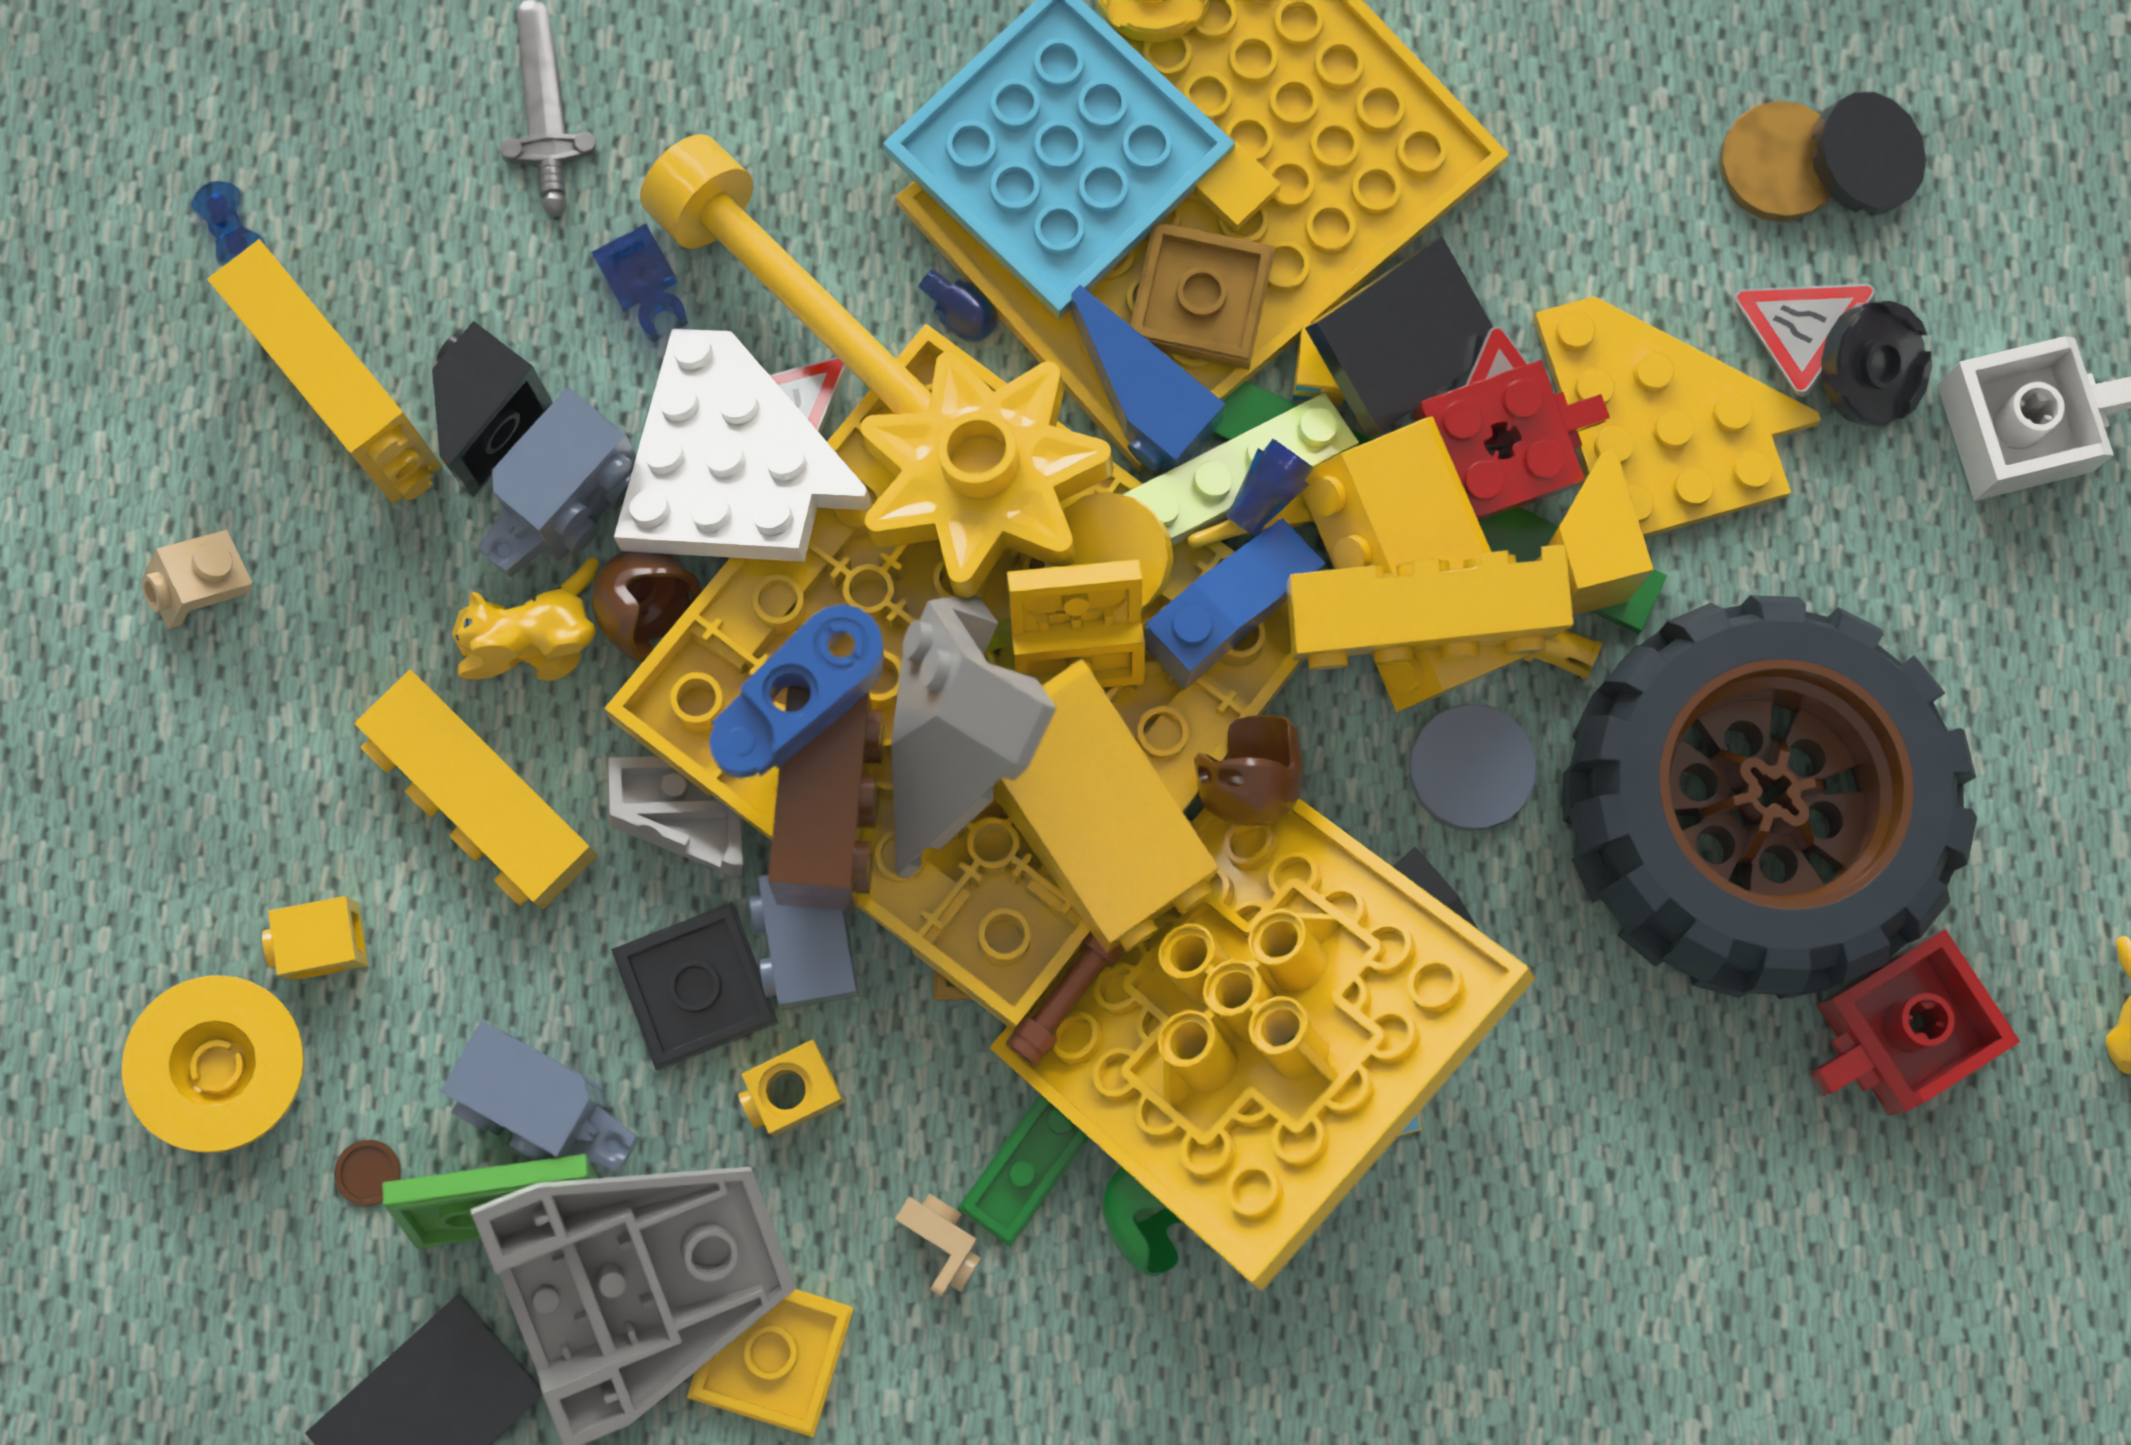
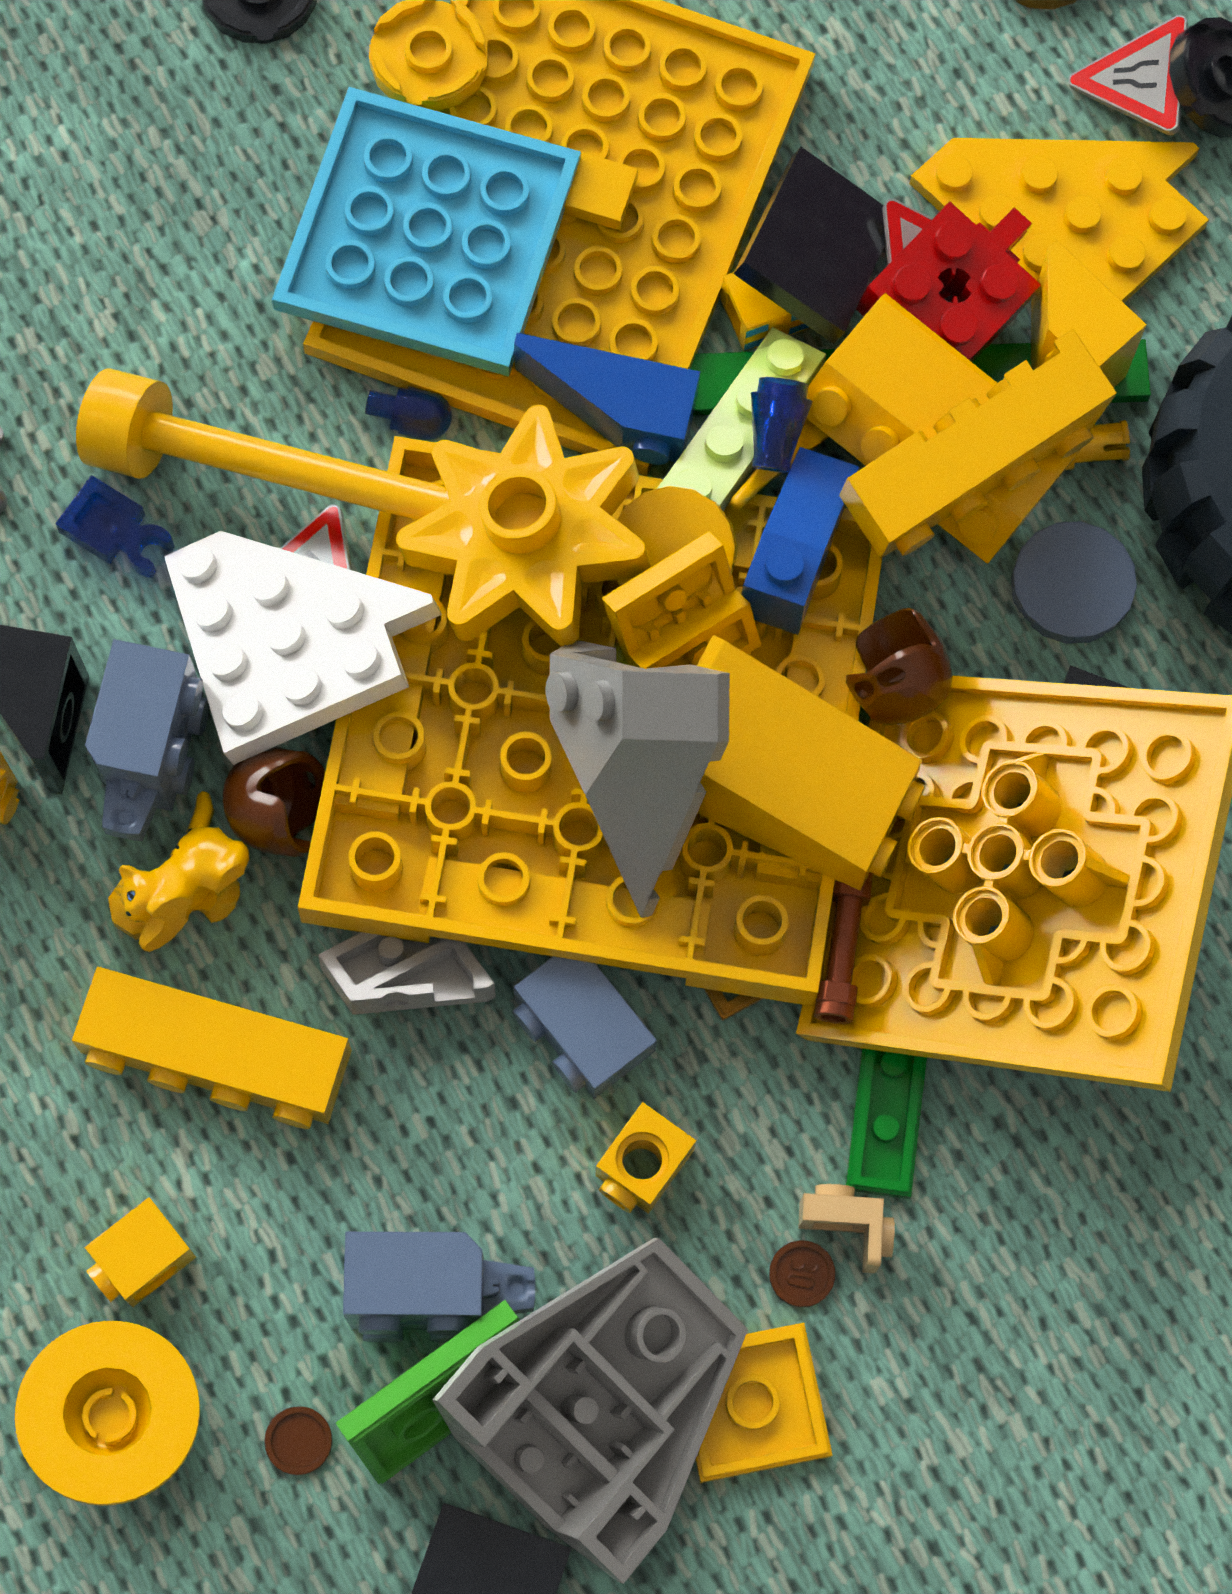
camera: 30 degrees left, 5 degrees down
(694, 986) = (504, 1118): black tile -> none
(756, 734) = (475, 833): blue piece -> none
(823, 811) = (549, 873): reddish brown brick -> none
(878, 1262) = (802, 1273): none -> reddish brown piece
(1139, 1225) = (1008, 1104): green helmet -> none
(1202, 294) = (622, 293): pearl gold tile -> none

